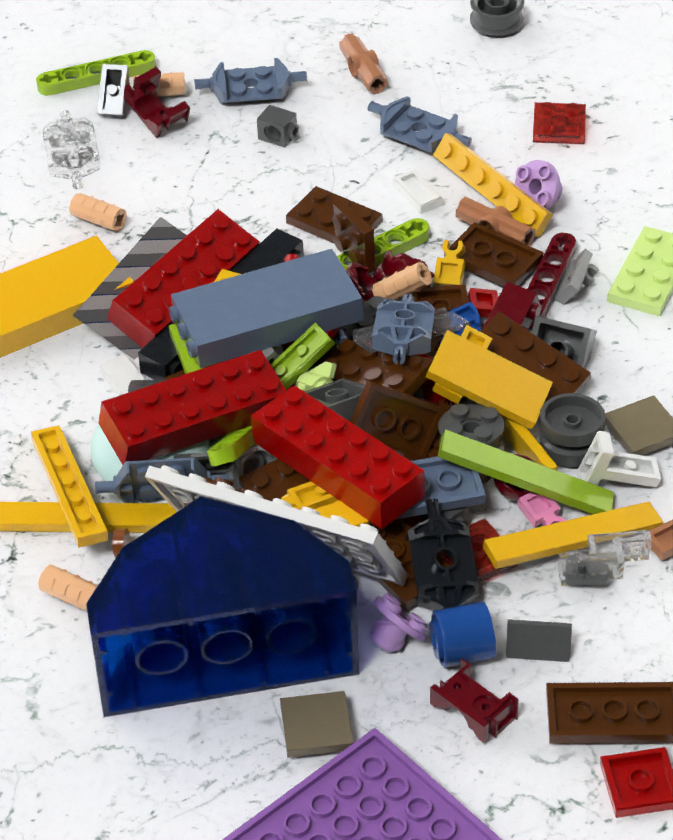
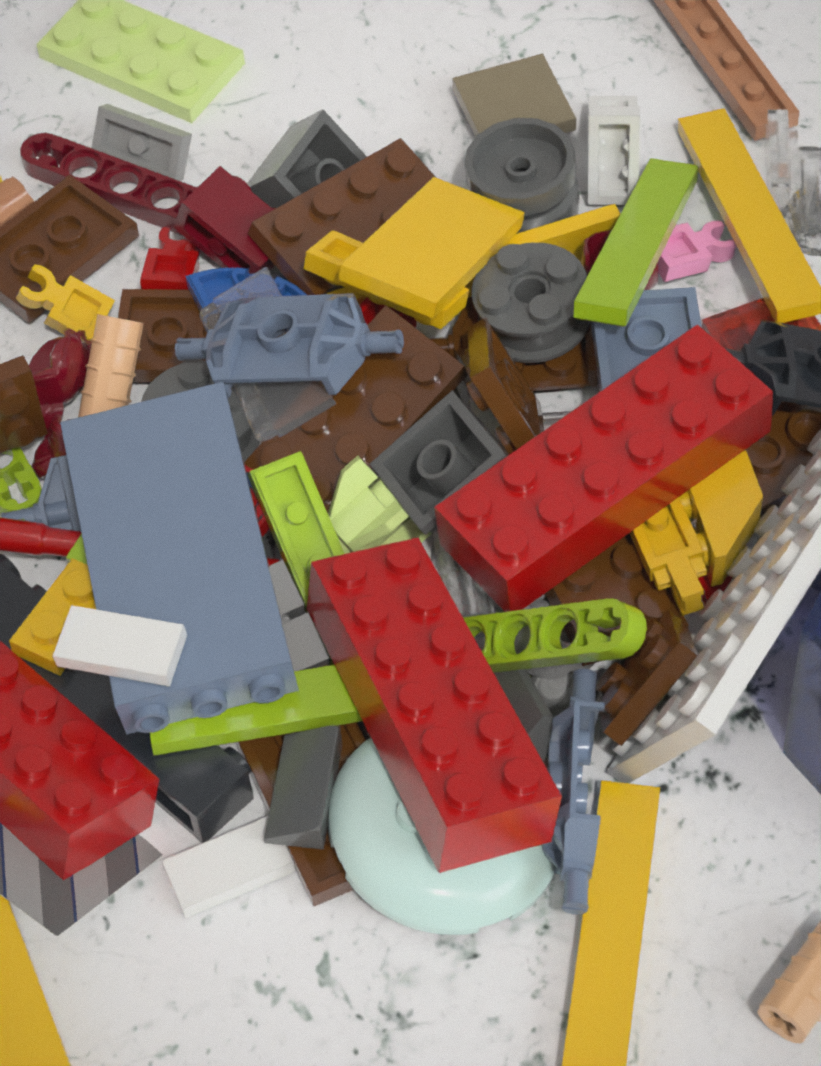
camera: 80 degrees left, 10 degrees up
(69, 486) = (544, 967): yellow plate -> none
(120, 538) = (701, 882): dark orange tile -> none
(199, 286) = (120, 645): none -> white tile

